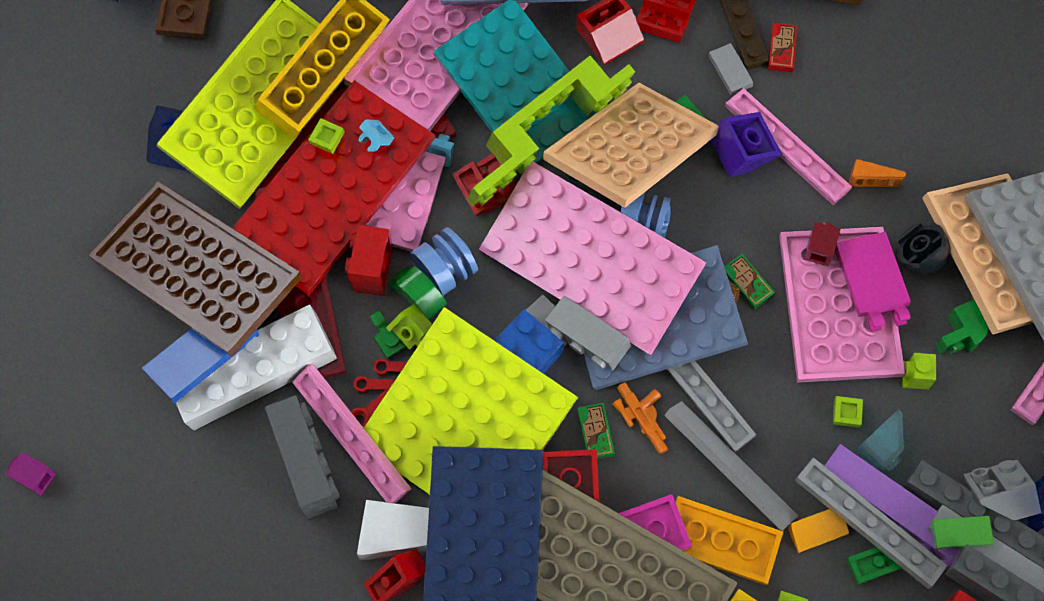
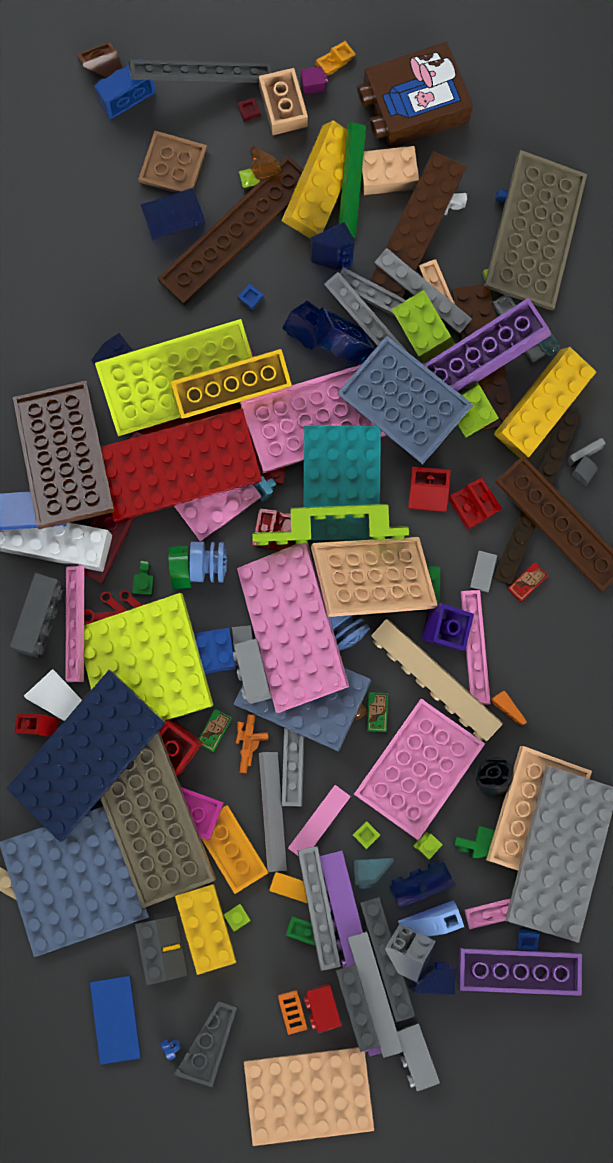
camera: 35 degrees right, 10 degrees up
(326, 136) = (196, 433): lime plate -> none
(370, 260) = (166, 527): red brick -> none
(376, 133) = (225, 454): medium azure tile -> none
(410, 326) = (158, 586): lime brick -> none
(780, 201) = (437, 679): none -> tan brick
(787, 437) = (320, 820): none -> bright pink tile
(822, 243) = (436, 725): dark red brick -> none
(874, 279) = (449, 770): dark pink tile -> none
(950, 414) = (421, 884): none -> clear blue slope
(962, 531) = (362, 956): bright green tile -> none
(997, 438) = (435, 921): none -> light blue slope

